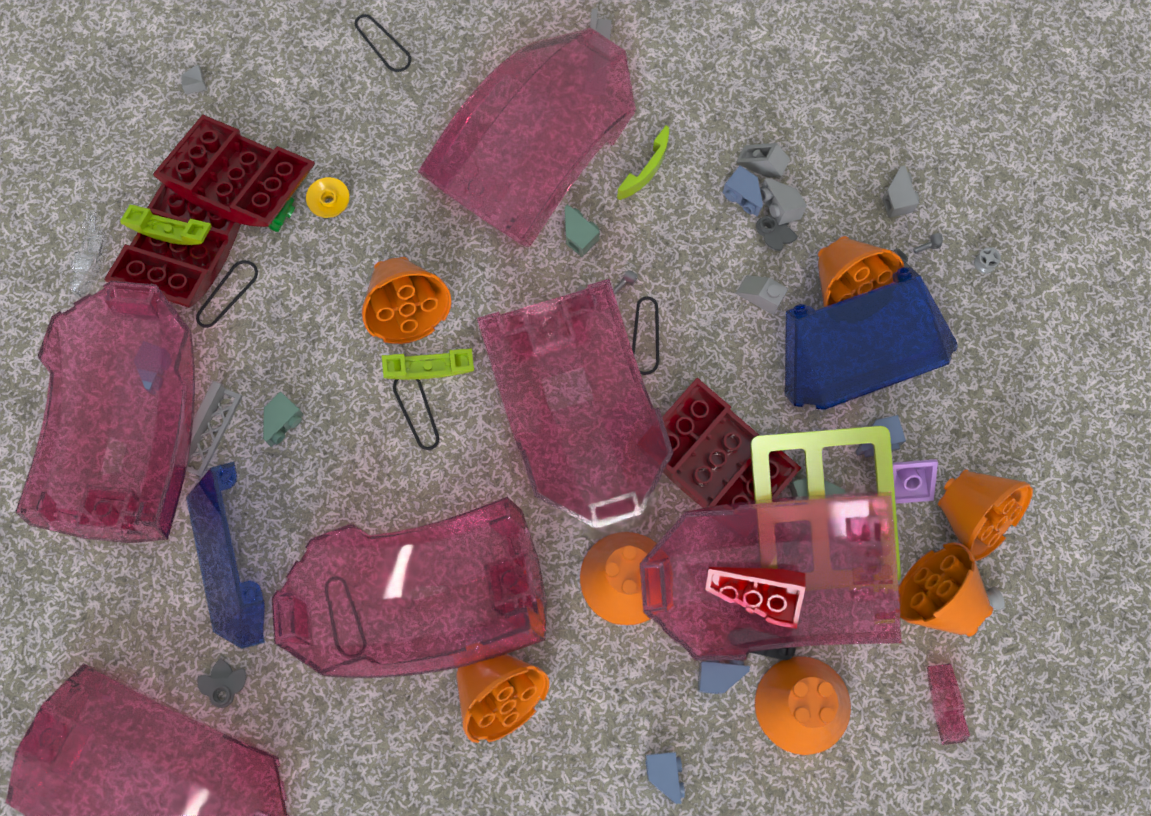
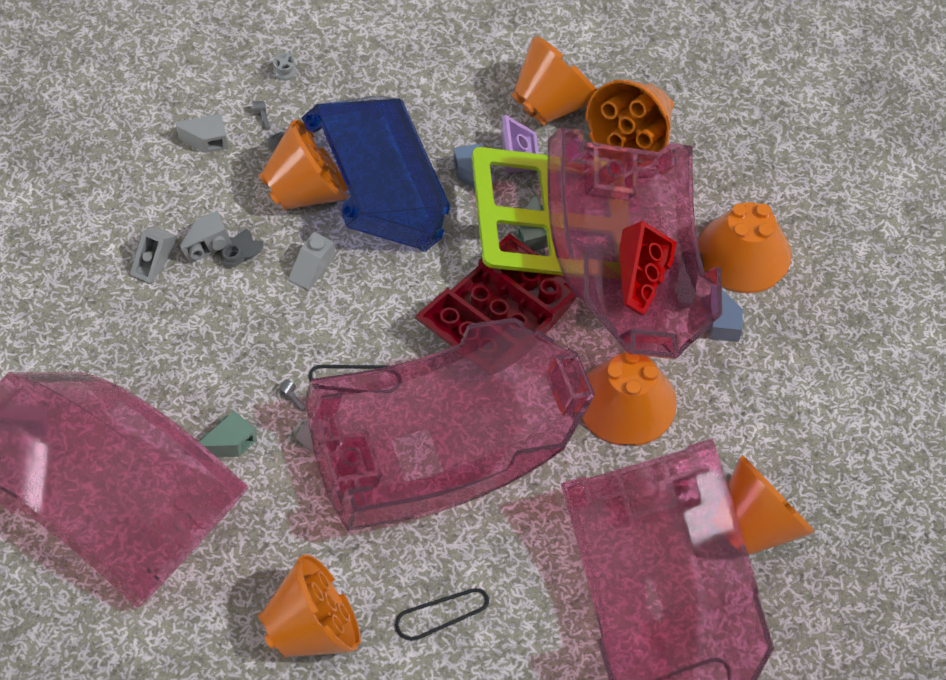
camera: 90 degrees left, 15 degrees down
(427, 366) = (388, 595): lime slope -> none
(632, 183) = (126, 351): lime slope -> none
(663, 774) = (823, 368): sand blue slope -> none
(744, 190) = (189, 271): sand blue slope -> none
(947, 704) = (734, 134): clear pink slope -> none

